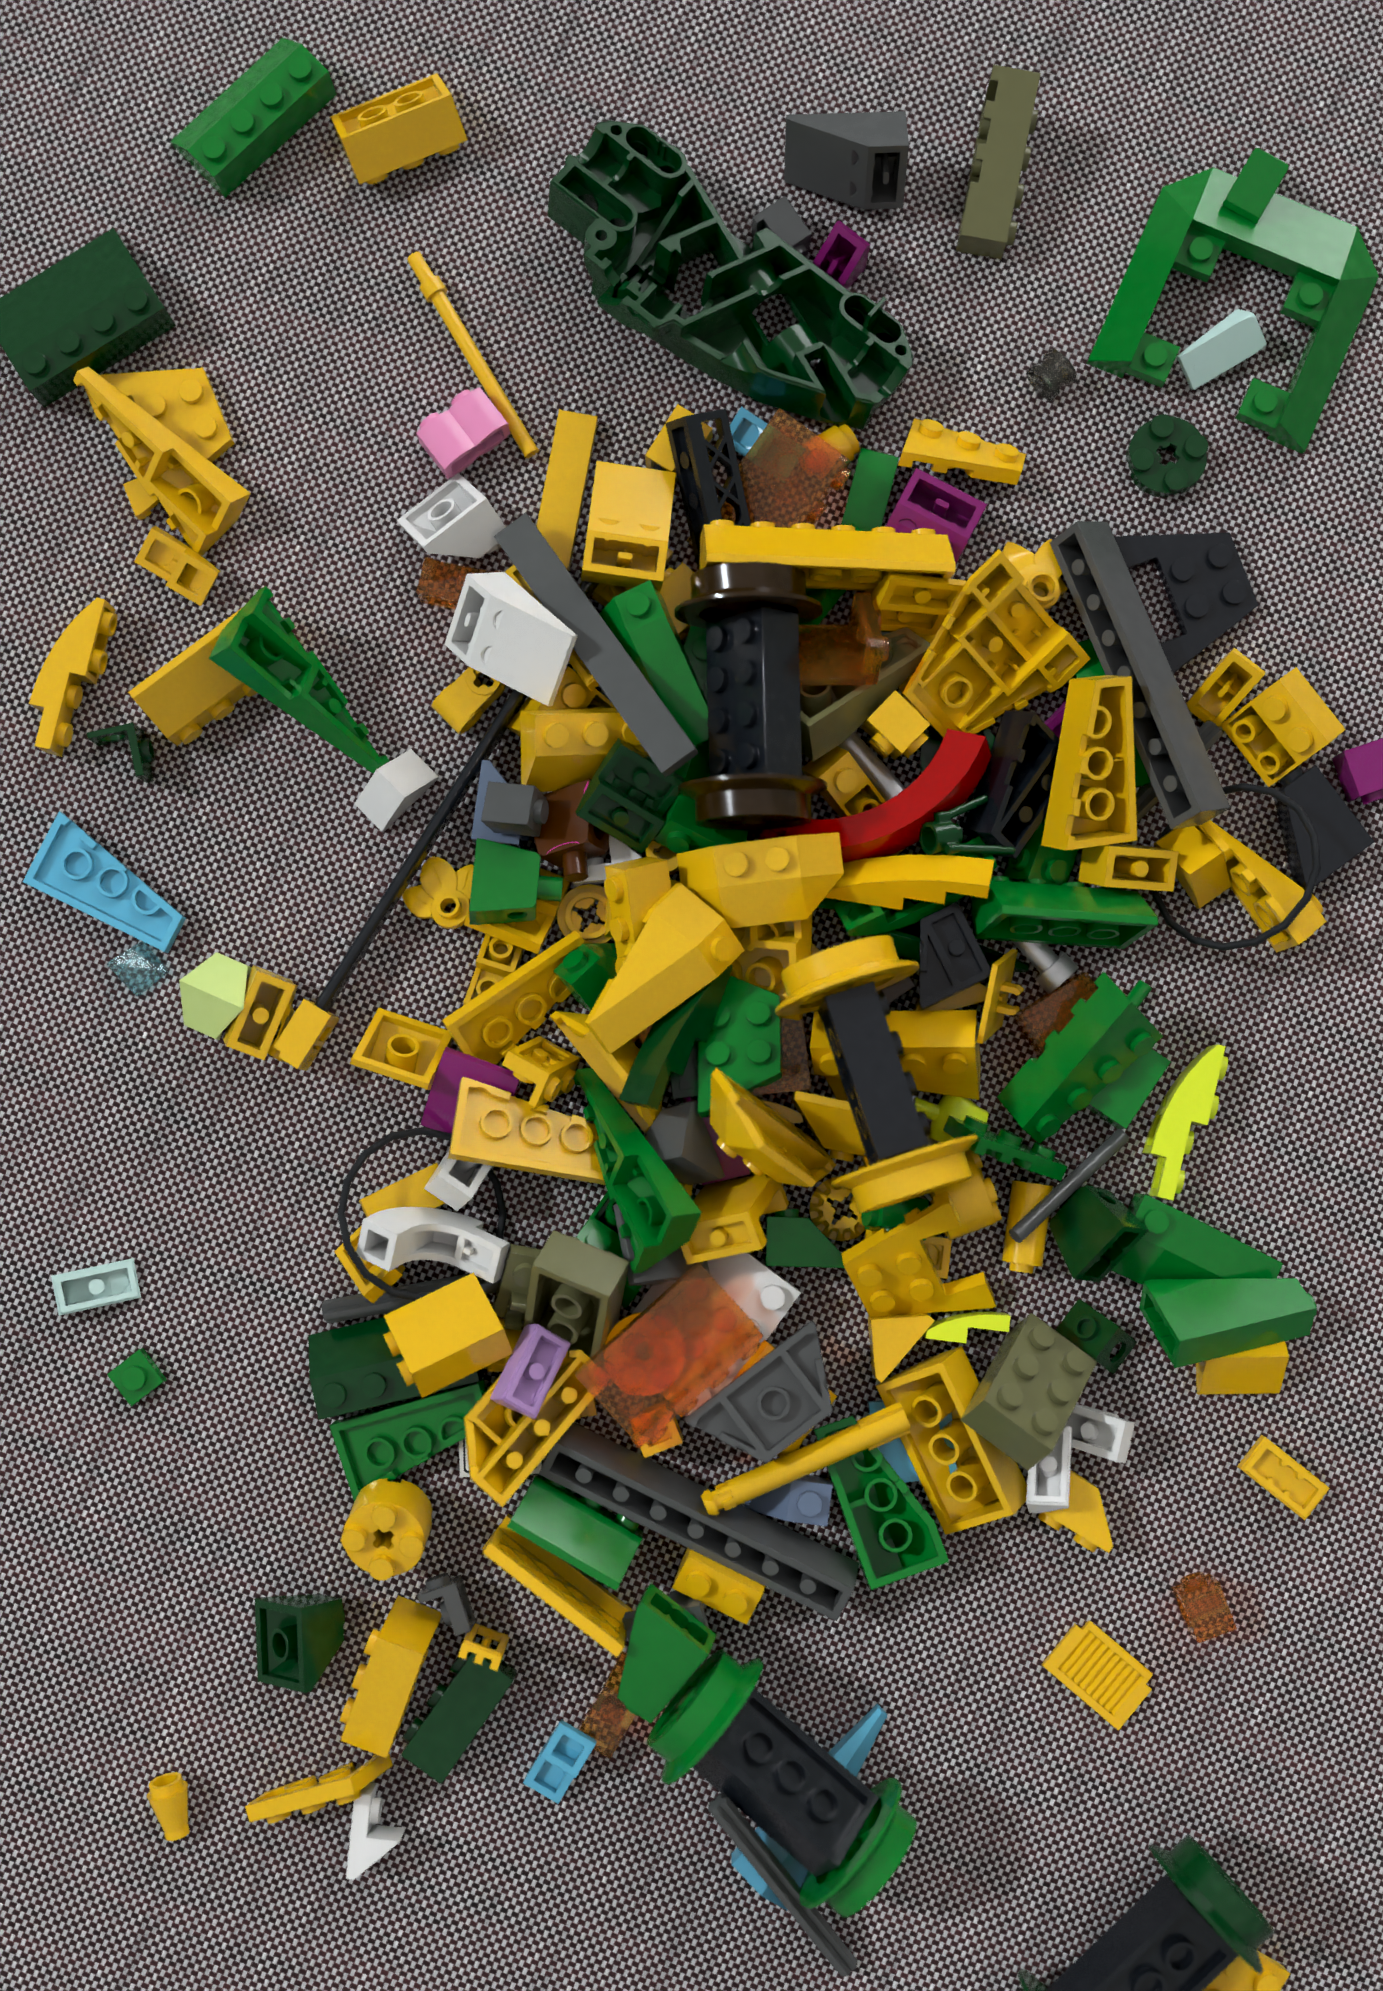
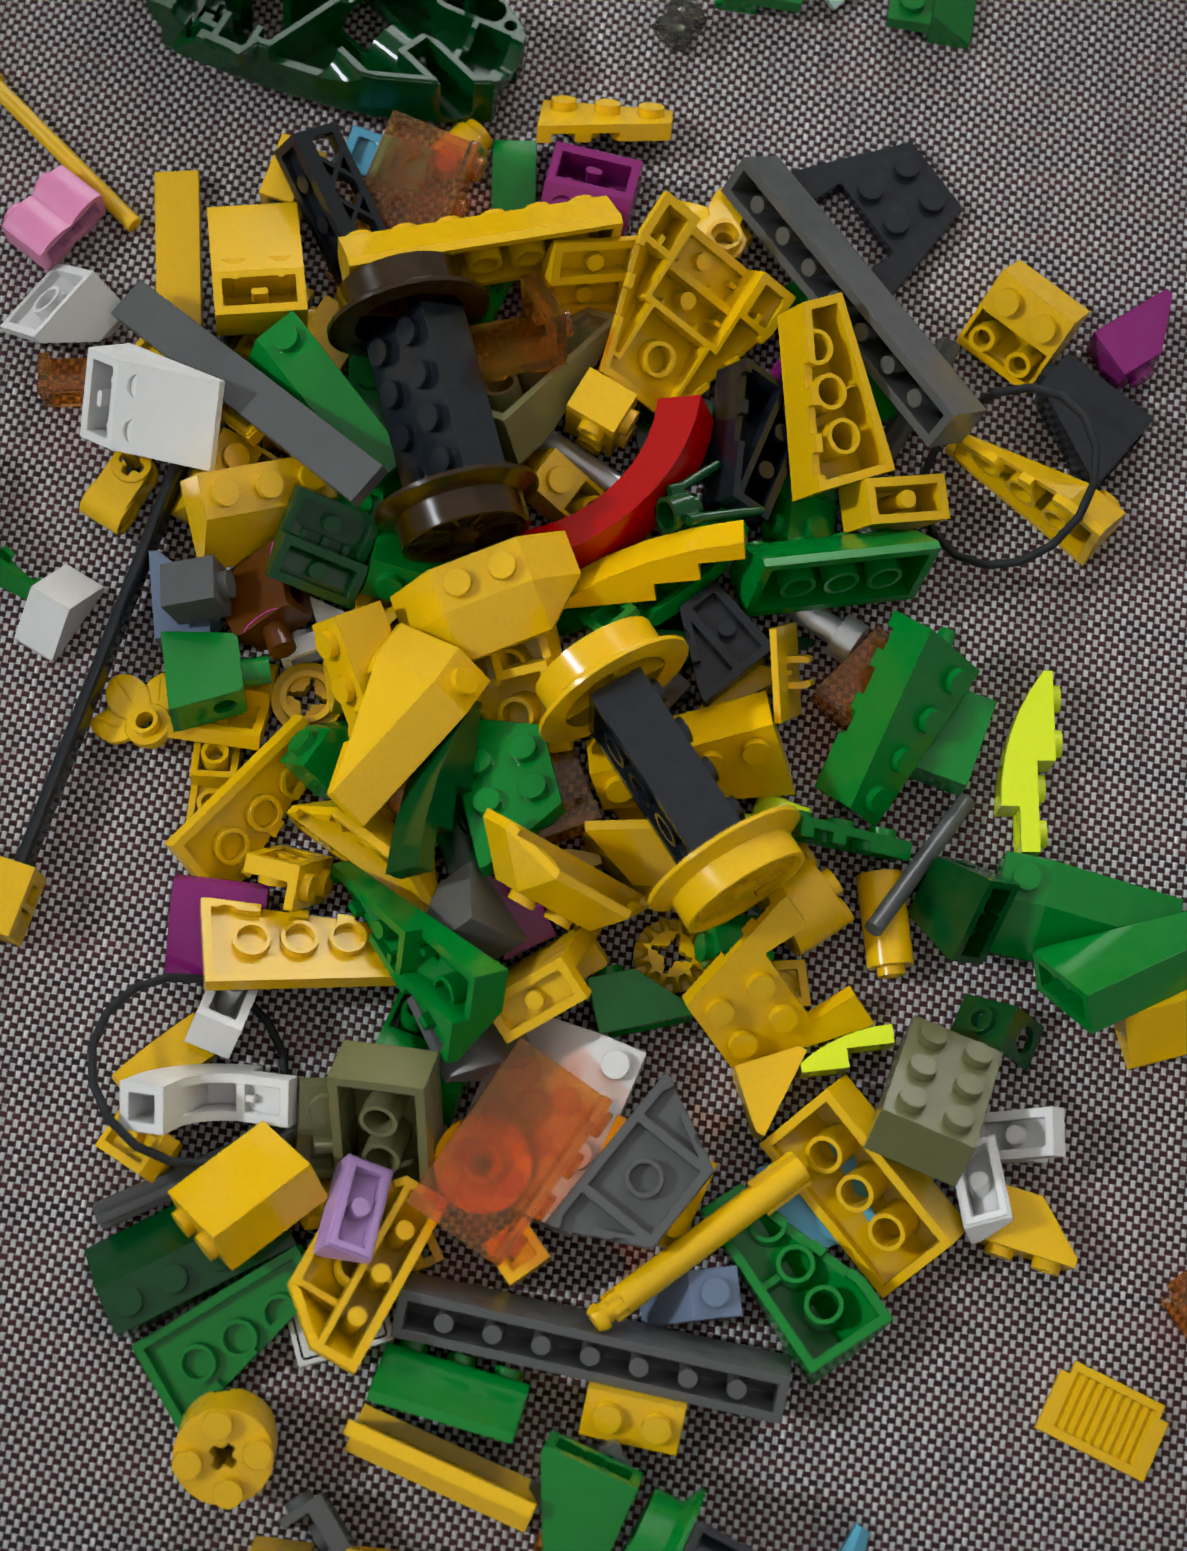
camera: 20 degrees left, 10 degrees down
(402, 1048) = (124, 895): yellow slope -> none
(1166, 433) = (818, 58): dark green plate -> none
(1199, 864) = (972, 489): yellow slope -> none
(1225, 687) = (950, 296): yellow slope -> none

